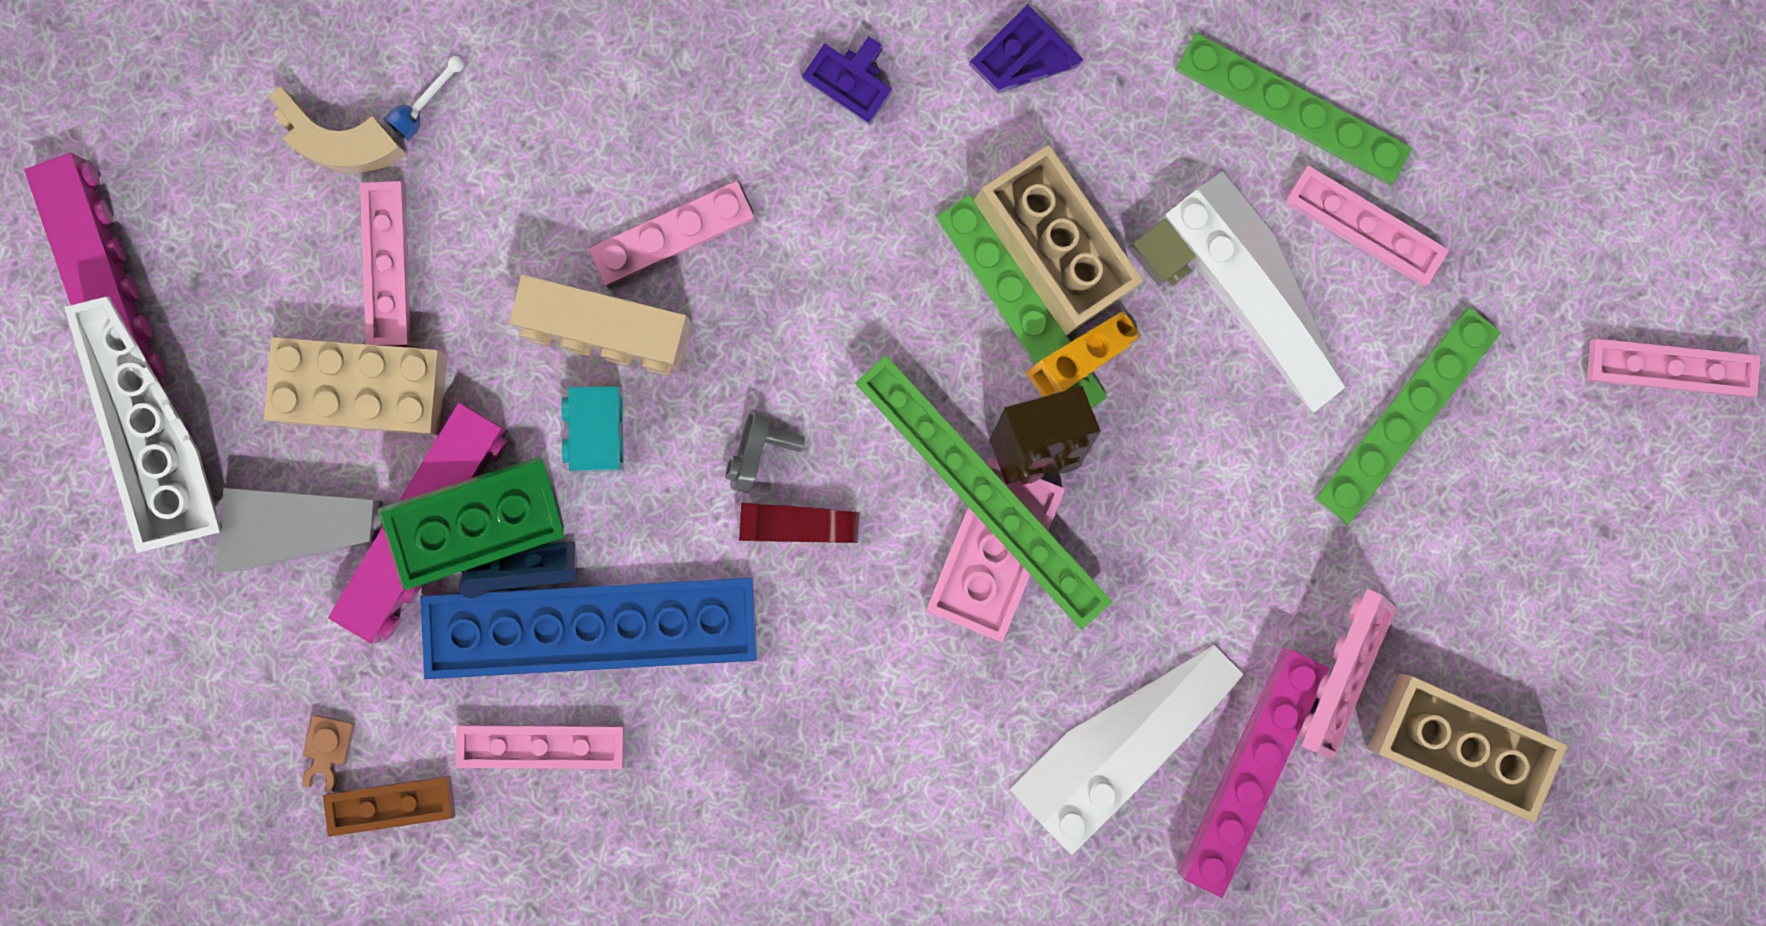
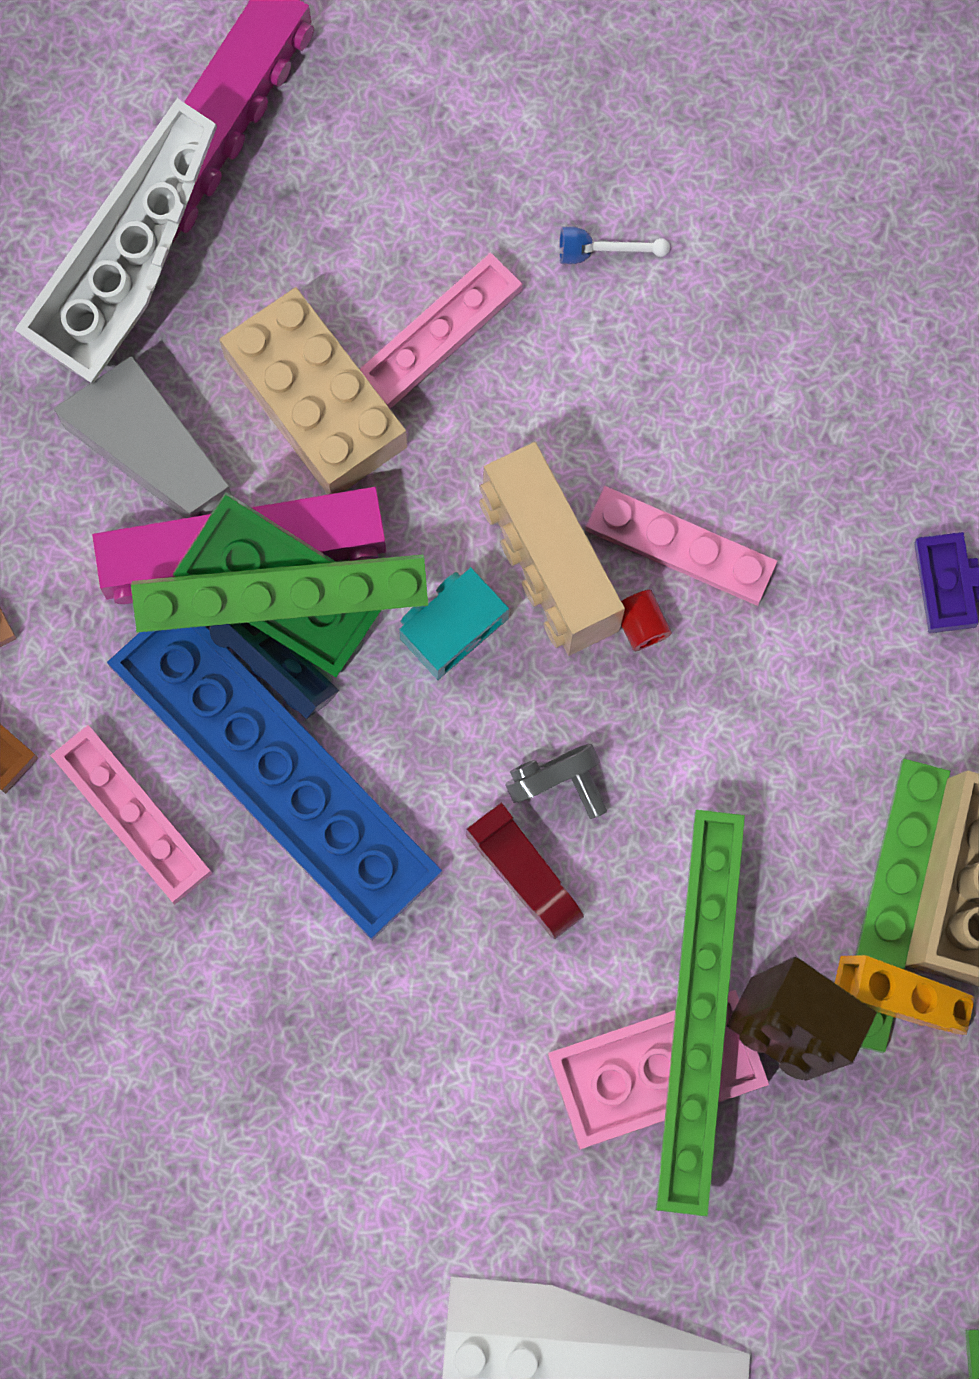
camera: 45 degrees right, 10 degrees down
(346, 151) = (505, 218): tan arch -> none
(477, 530) = (279, 593): none -> bright green plate
(700, 303) = (644, 620): none -> red gear

